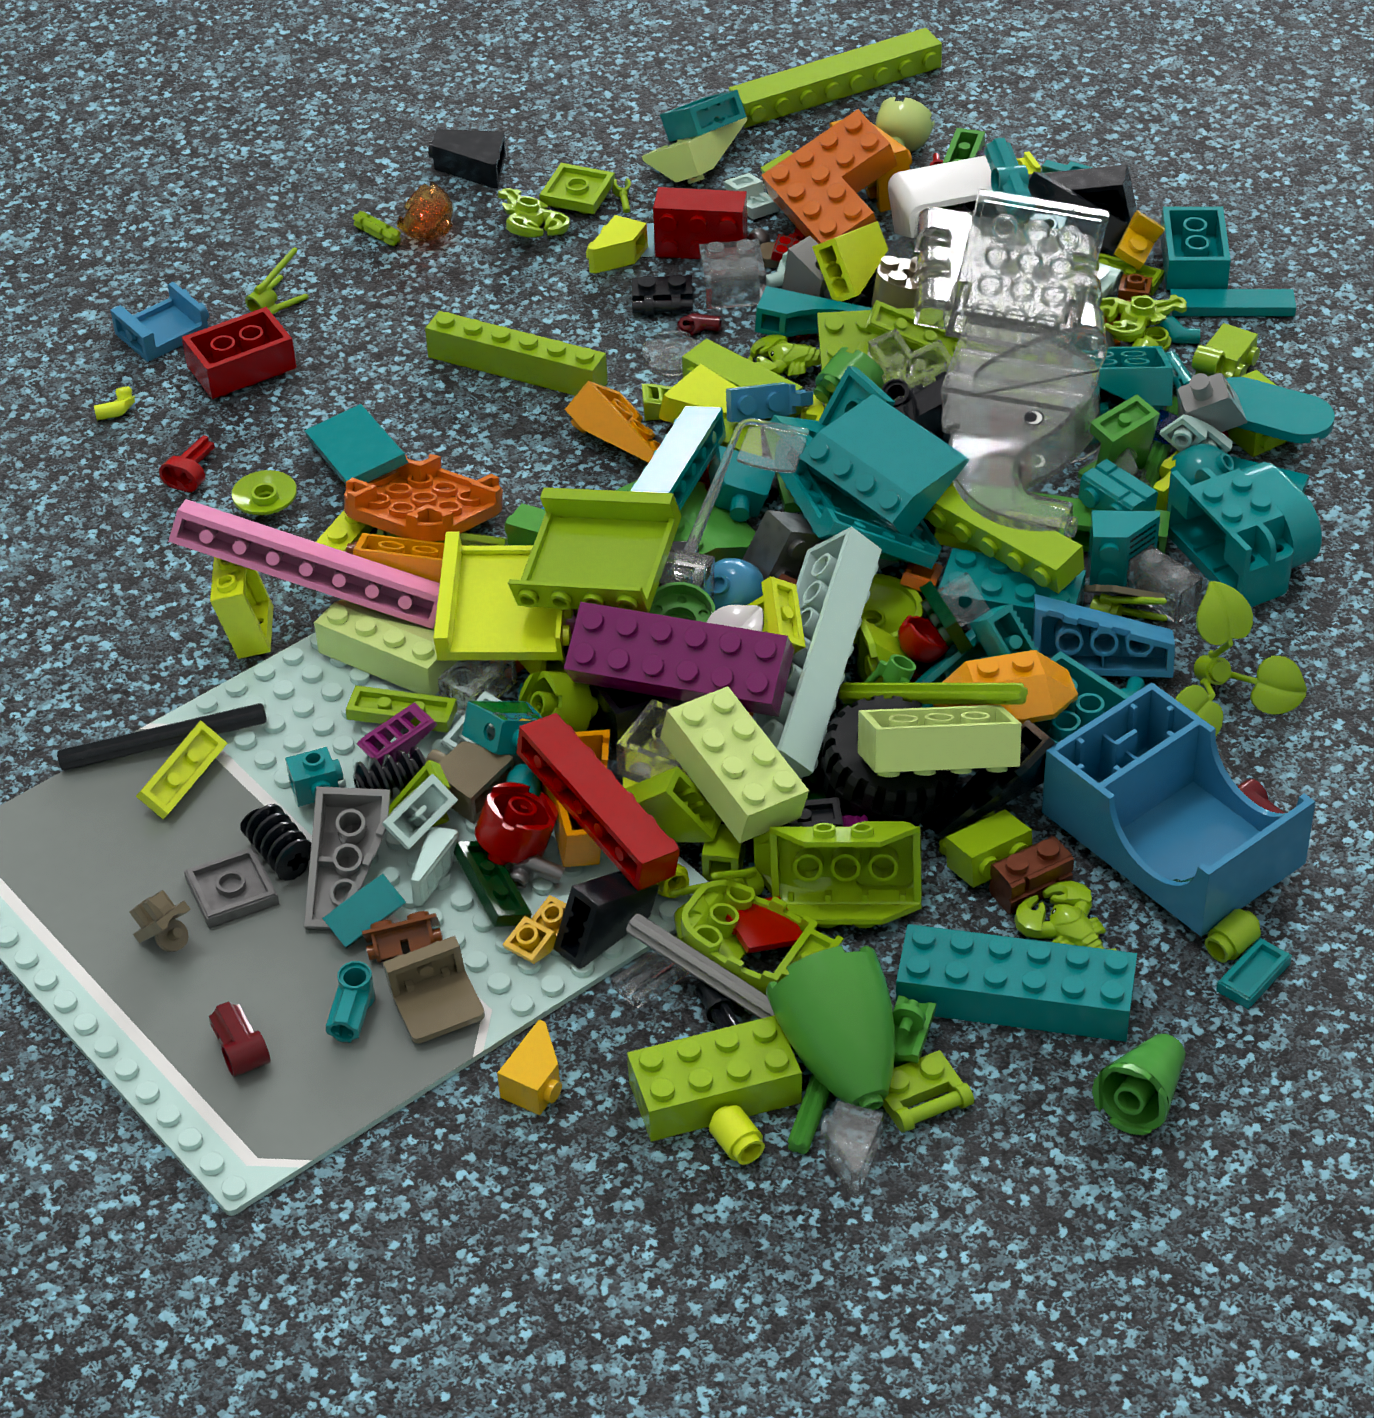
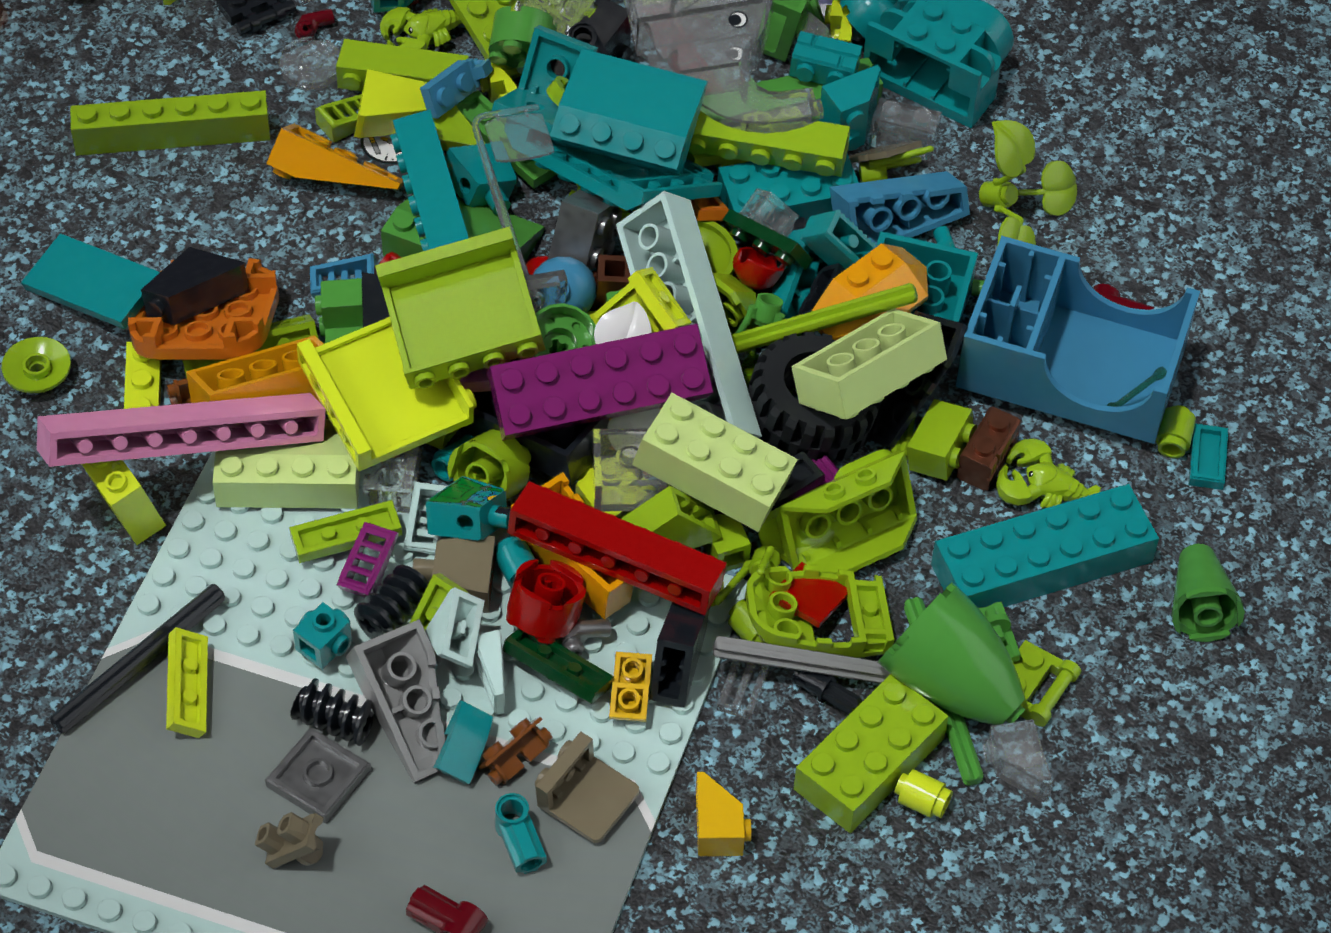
camera: 35 degrees left, 10 degrees up
(423, 474) = (193, 285): none -> black slope

